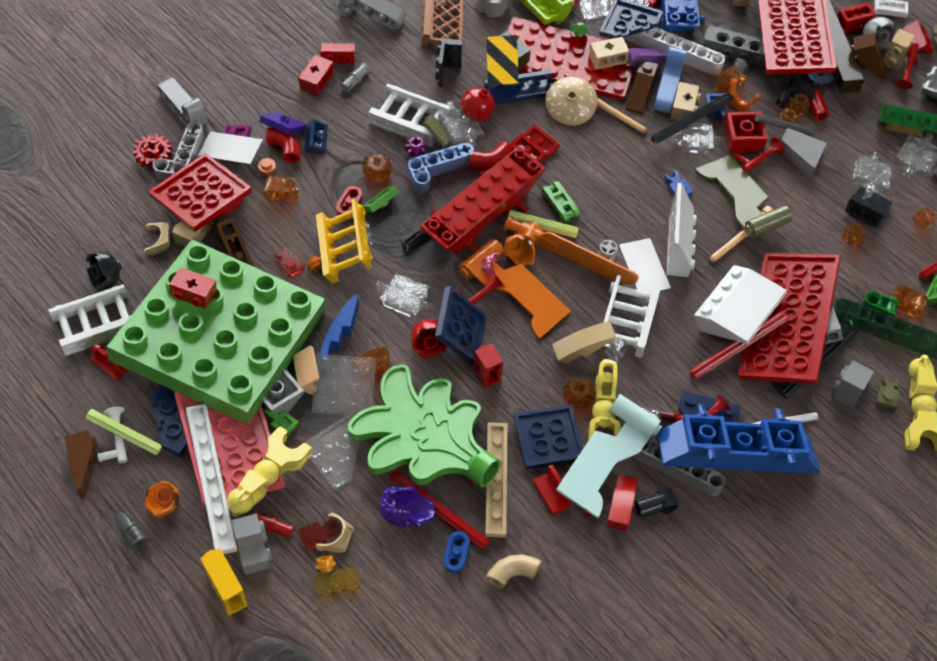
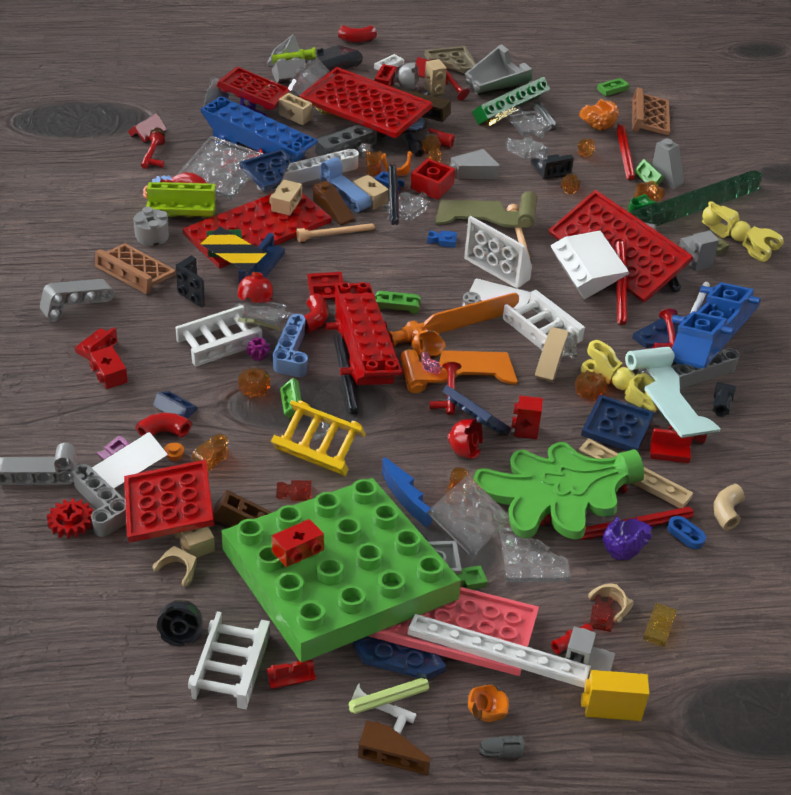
camera: 55 degrees left, 15 degrees down
(266, 472) = (536, 616): light yellow piece -> none
(283, 123) = (142, 411): dark purple plate -> none
(306, 369) = (433, 526): light nougat panel -> none
(314, 264) = (318, 472): orange plate -> none
(325, 564) = (639, 621): light orange plate -> none
(345, 200) = (272, 418): red plate -> none
(354, 77) = (138, 347): light grey pin -> none
(404, 295) = (404, 435): clear plate -> none
(546, 224) = (419, 317): yellowish green axle -> none
(571, 110) = (306, 243): tan dish -> none
(579, 29) = (243, 200): bright green plate -> none
(622, 502) = (718, 414): slope -> none
(636, 55) = (307, 184): medium lavender panel -> none
(775, 146) = (460, 173): red piece -> none
(784, 124) = (441, 158): dark grey bar -> none
(869, 54) = (428, 84): reddish brown slope -> none

